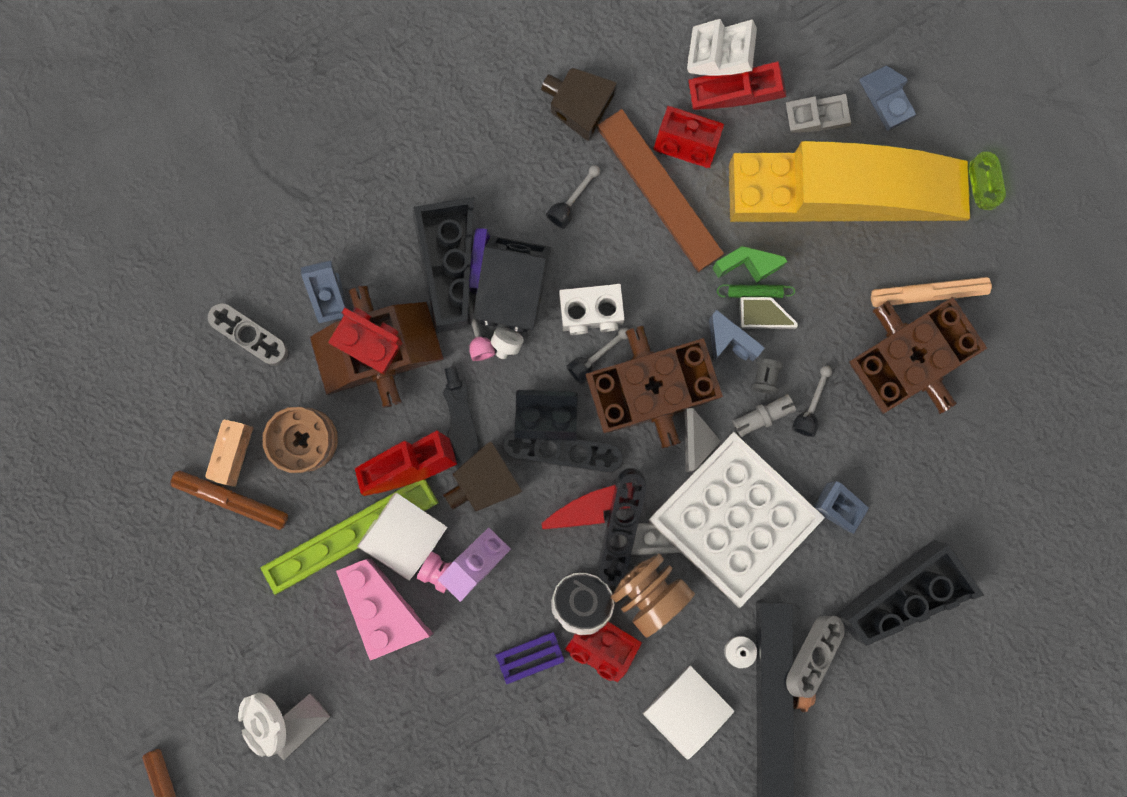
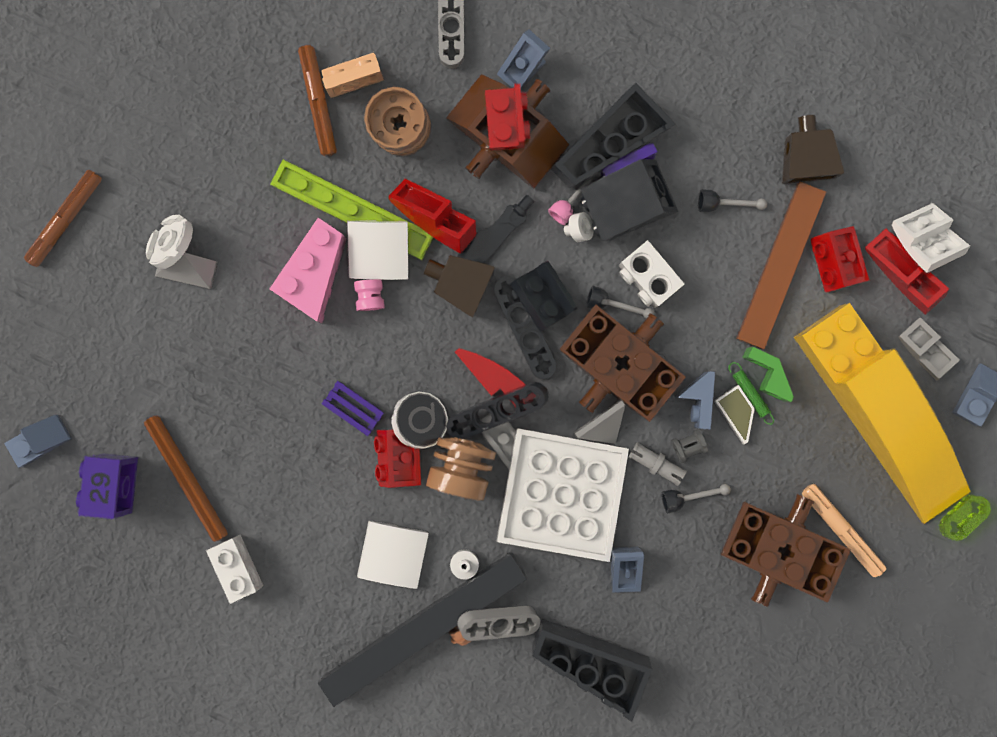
camera: 60 degrees right, 5 degrees up
(474, 564) = (393, 318): lavender brick -> none

